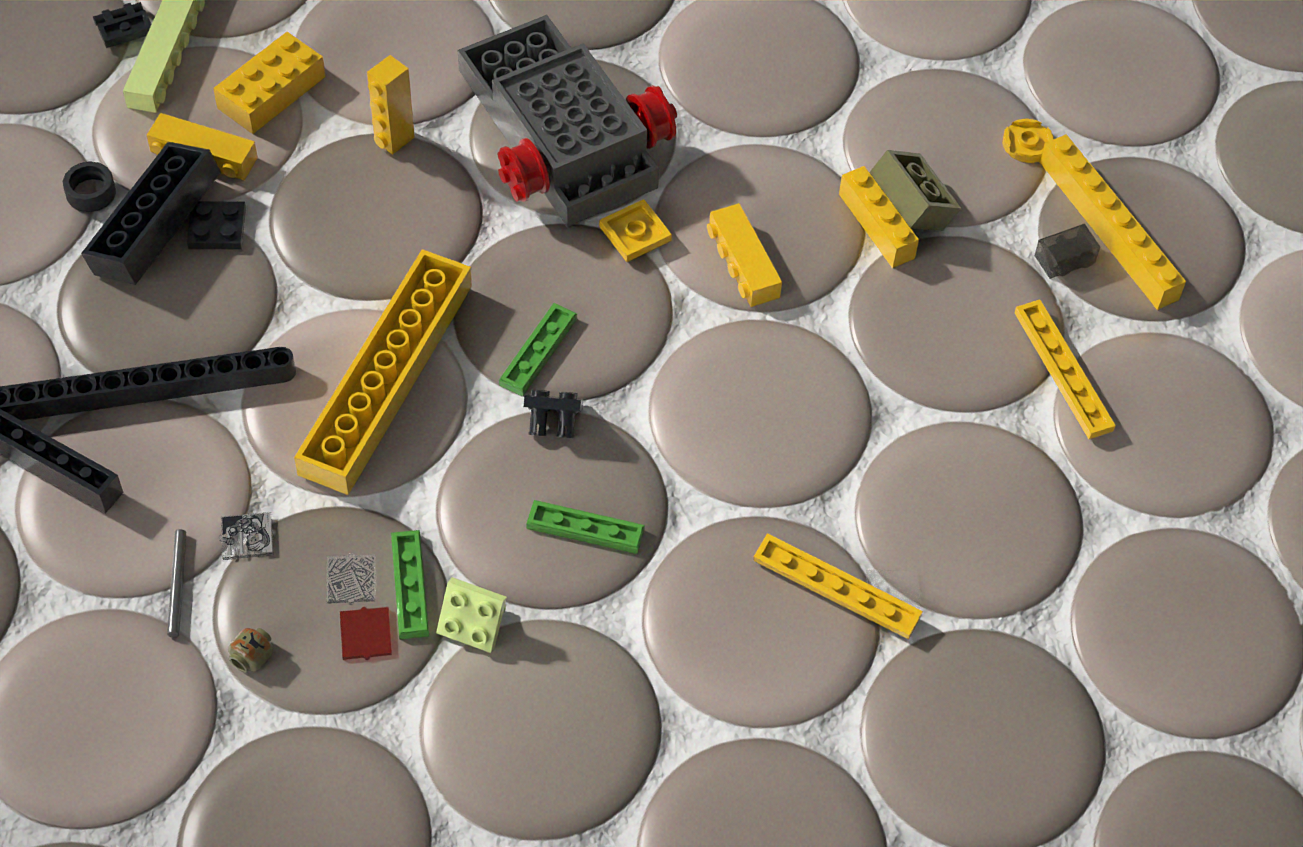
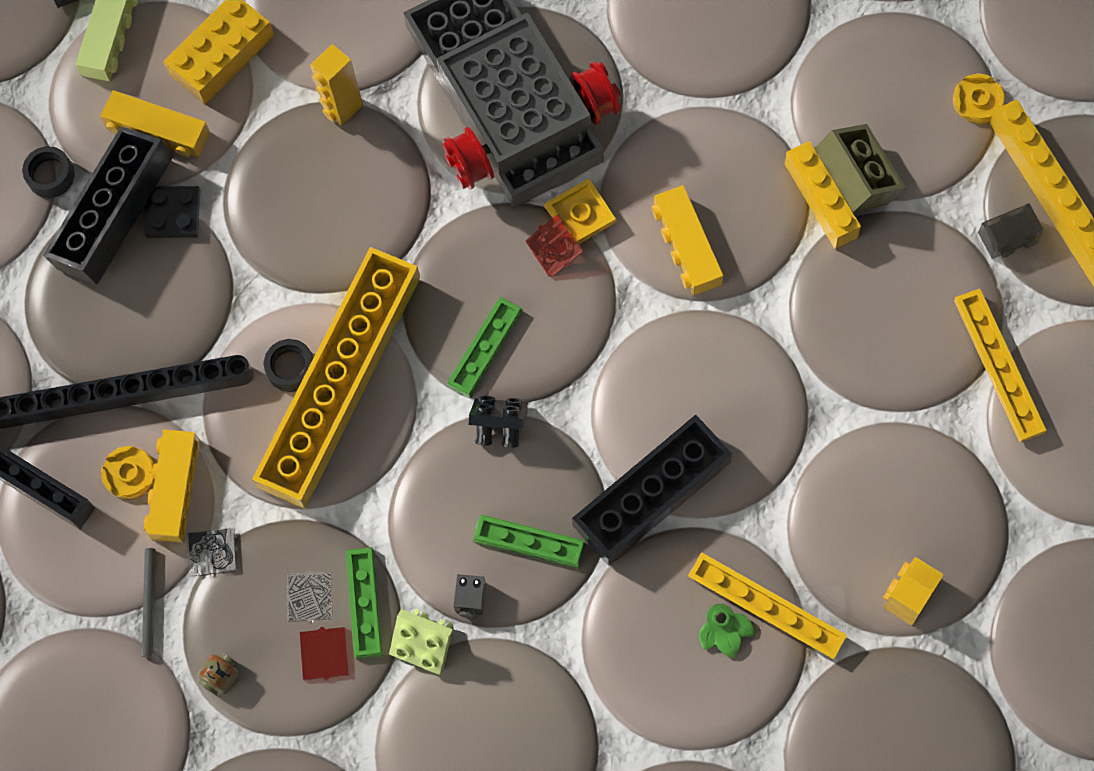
camera: 10 degrees right, 15 degrees up
(160, 460) = (127, 472): none -> yellow tile
(207, 470) = (172, 486): none -> yellow brick
(328, 345) = (277, 350): none -> black tyre
(523, 574) = (469, 595): none -> dark grey brick
(609, 258) = (554, 245): none -> clear red piece
(713, 475) = (652, 490): none -> black brick
(796, 613) = (726, 634): none -> bright green plate
(987, 571) = (912, 591): none -> yellow brick

